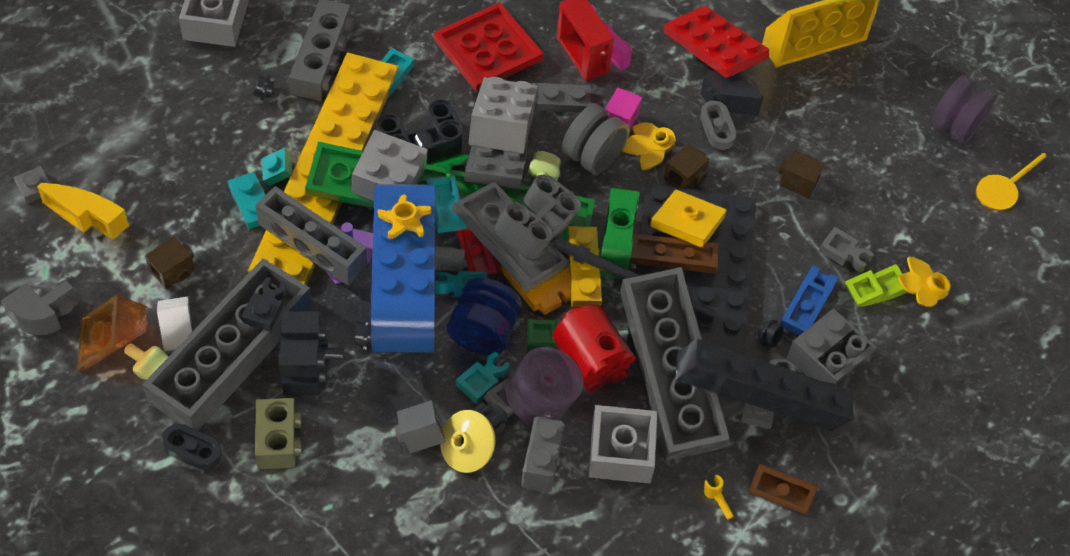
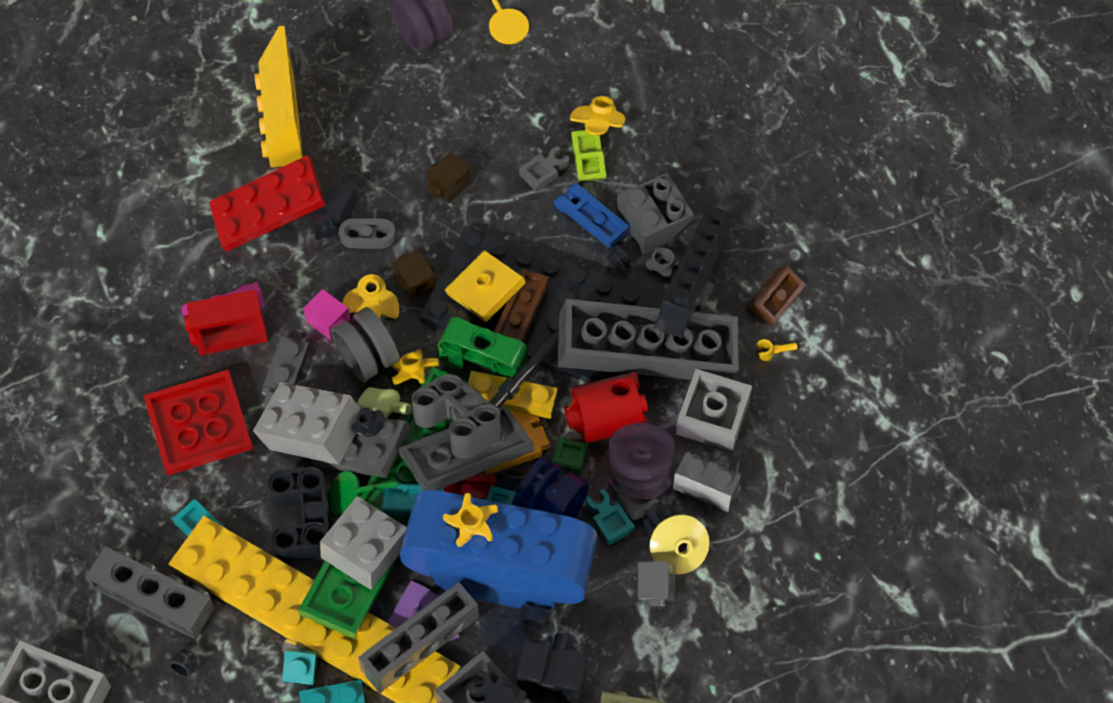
camera: 70 degrees left, 5 degrees up
(511, 151) = (368, 422): none -> black plate
(590, 186) = (413, 366): none -> yellow animal

